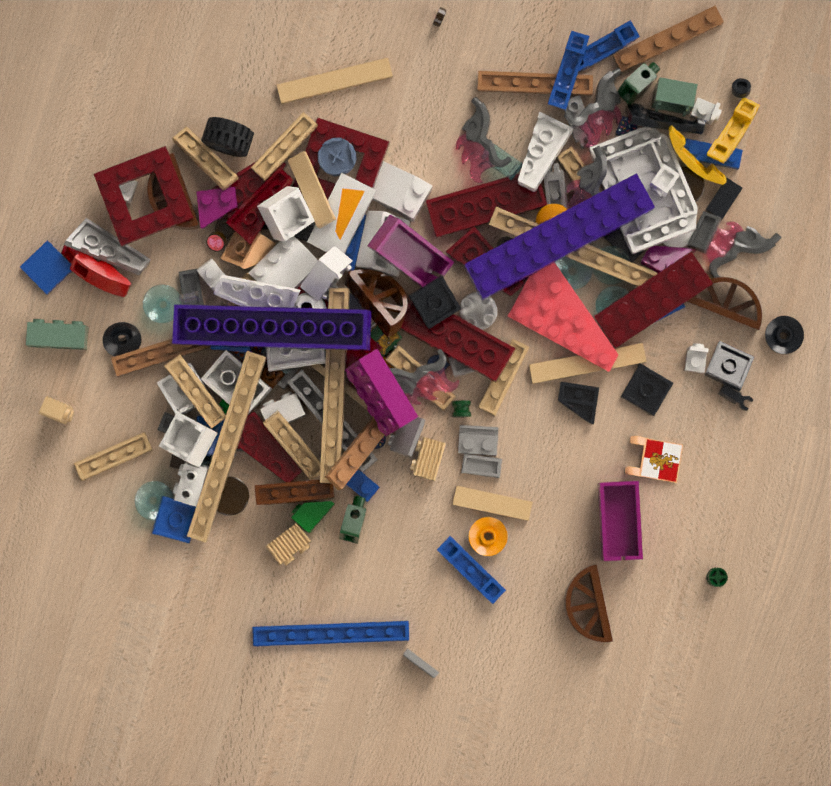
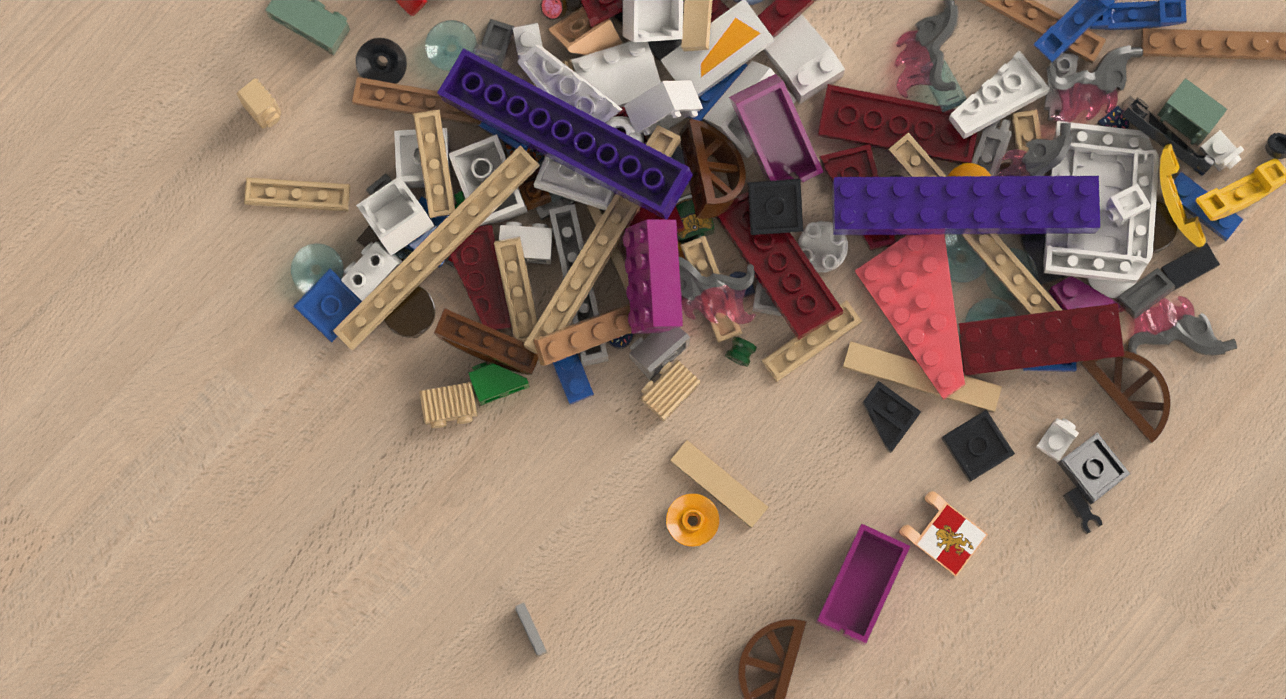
camera: 30 degrees right, 5 degrees down
(331, 633) = (442, 538): blue tile -> none
(351, 527) = (534, 423): dark green torso -> none
(471, 570) = (651, 549): blue slope -> none
(478, 440) = (741, 400): light grey plate -> none
(481, 465) = (729, 432): light grey tile -> none
(638, 82) = (1156, 75): dark green torso -> none
(794, 334) = (1193, 462): black dish -> none

